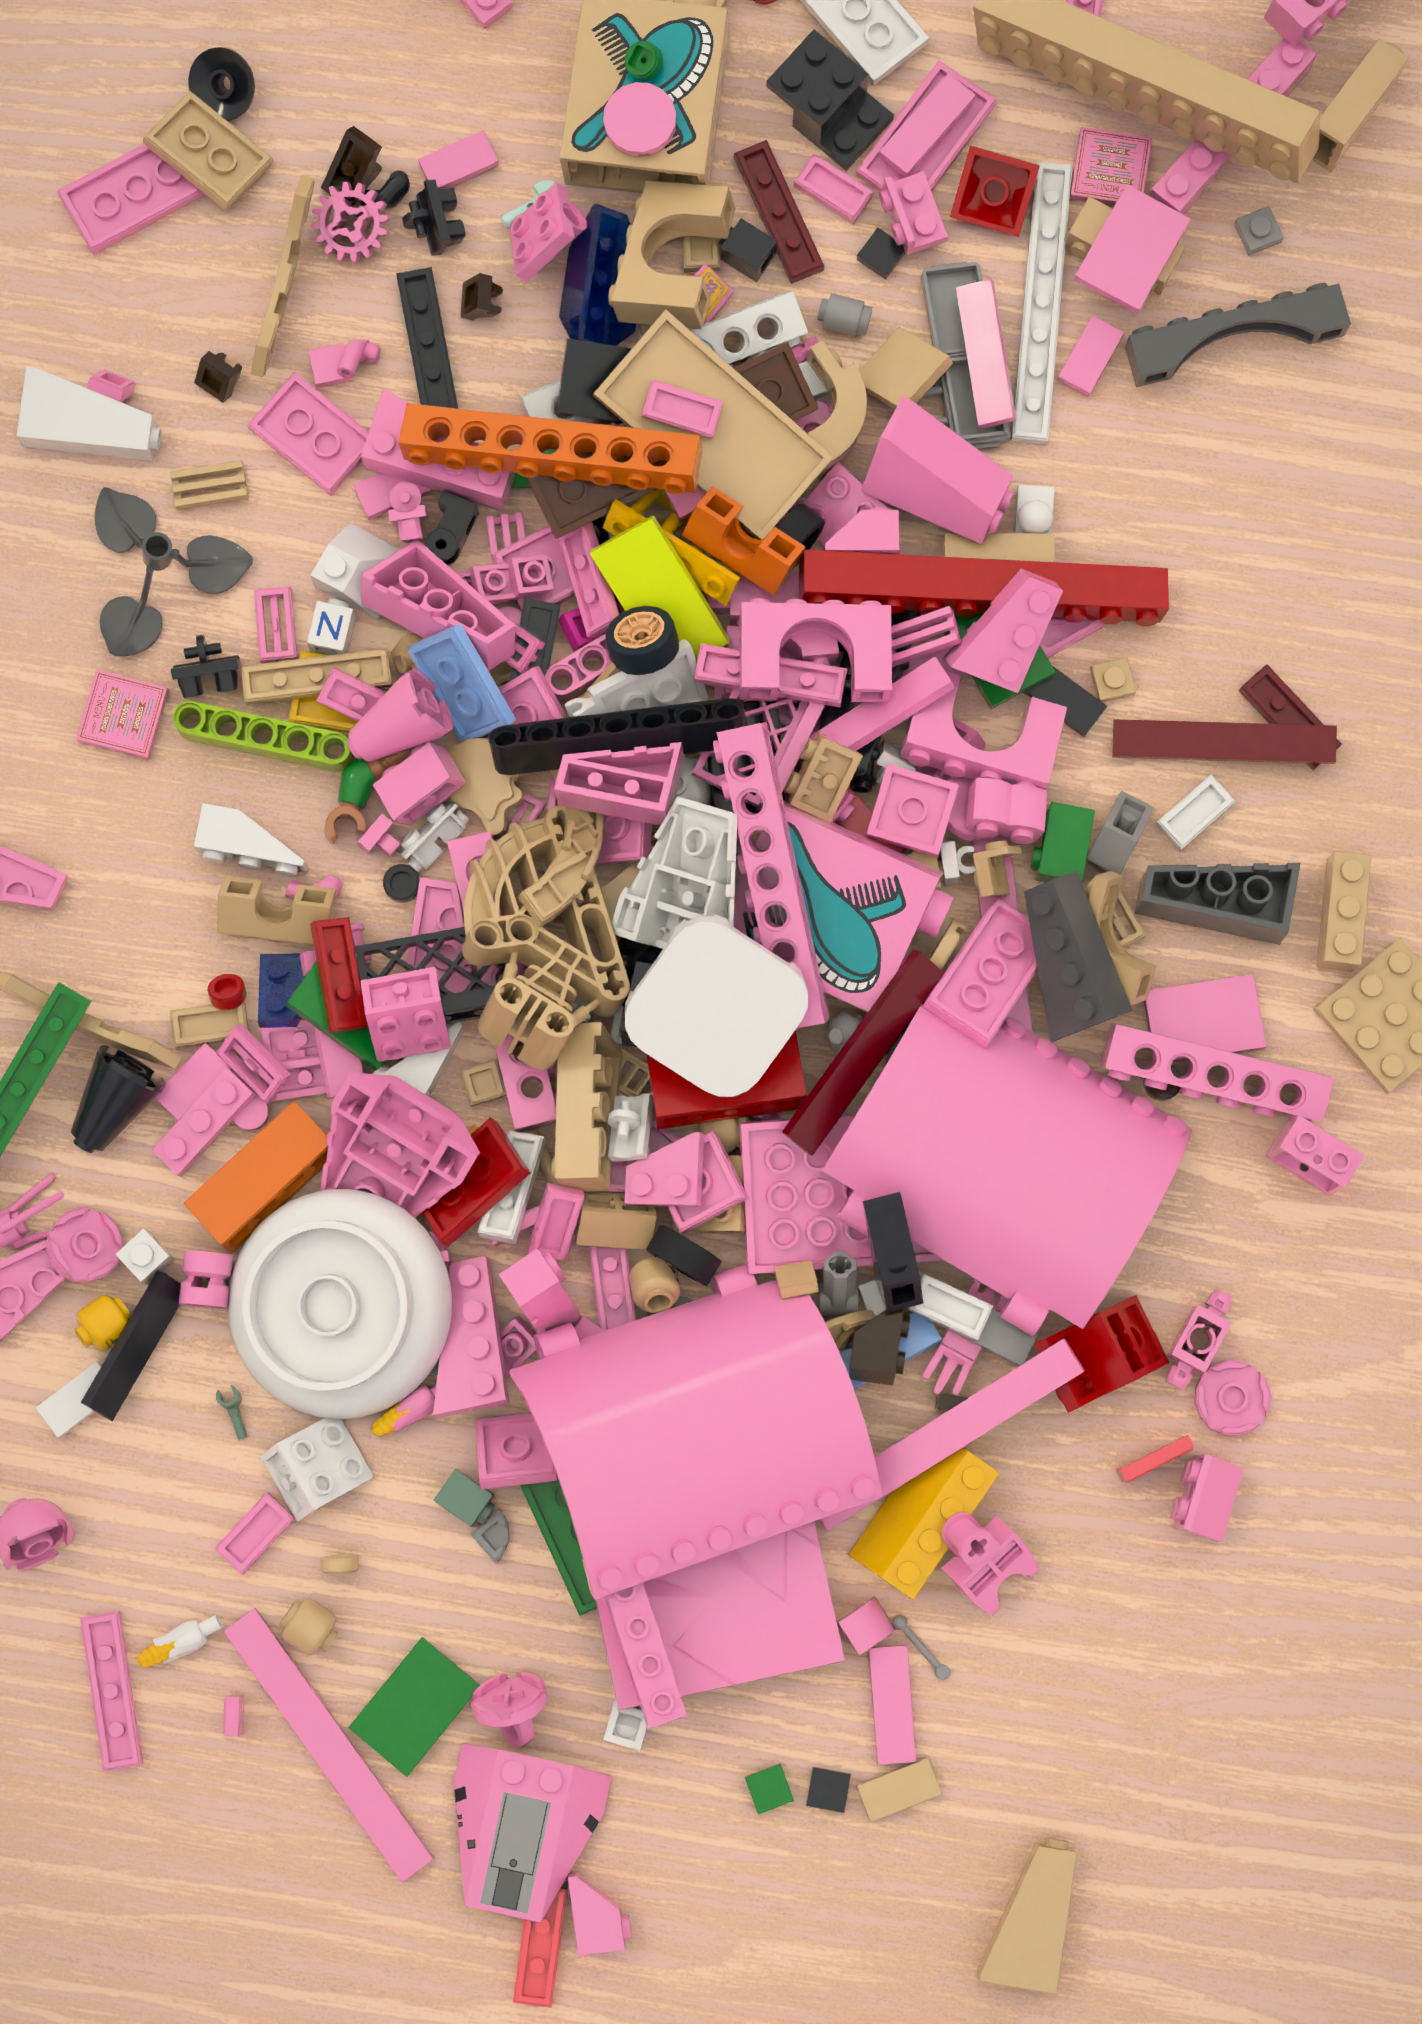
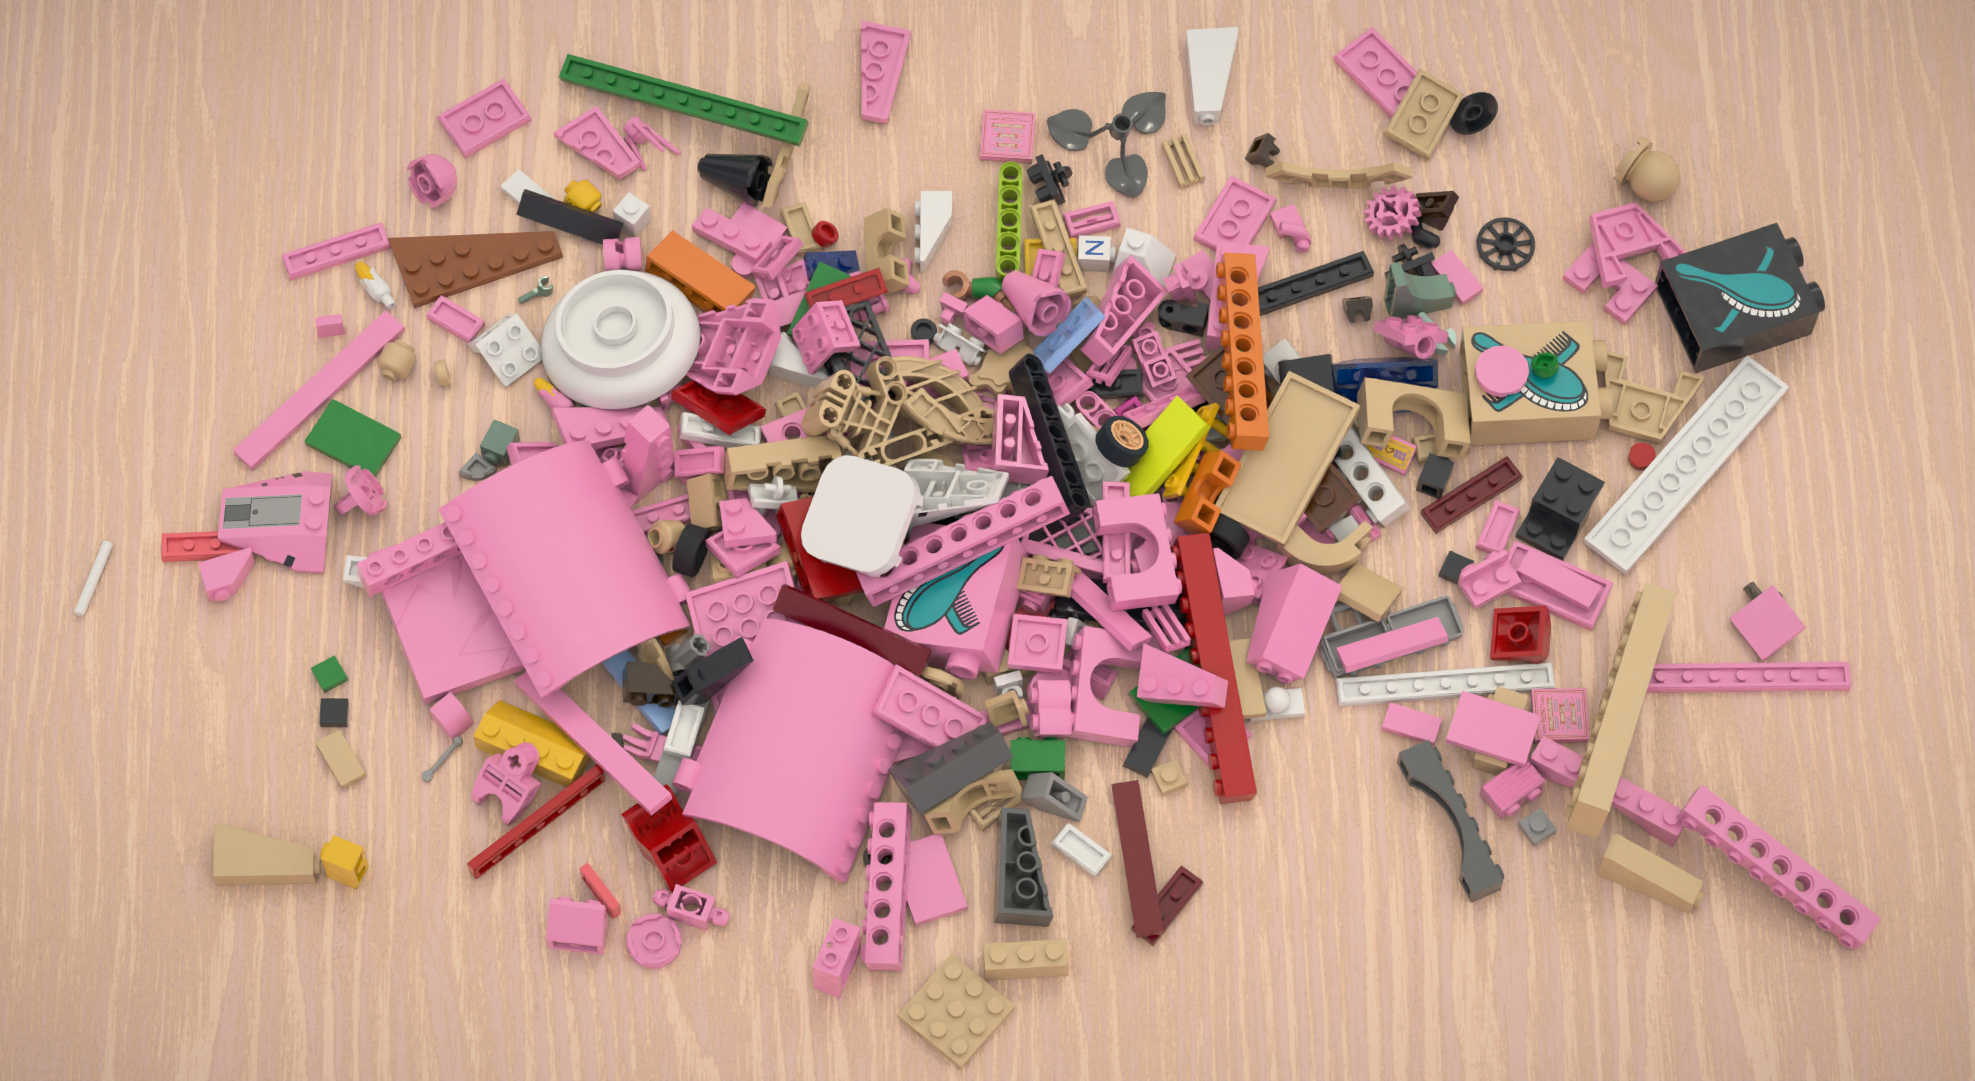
camera: 80 degrees right, 15 degrees down
(84, 1245) = (634, 174): bright pink tile -> none
(111, 385) = (1238, 84): bright pink tile -> none
(166, 1516) = (462, 262): none -> dark orange wing
(420, 90) = (1505, 244): none -> black wheel
(482, 215) = (1415, 294): none -> sand green arch
(682, 409) = (1292, 432): bright pink tile -> none
(796, 1279) = (685, 621): tan tile -> none
(844, 315) = (1401, 549): light grey brick -> none
(892, 1704) = (399, 745): bright pink tile -> none
(1043, 1532) = (536, 821): none -> red tile
(1065, 1807) = (344, 861): none -> yellow brick
(1207, 250) = (1512, 788): none -> bright pink brick

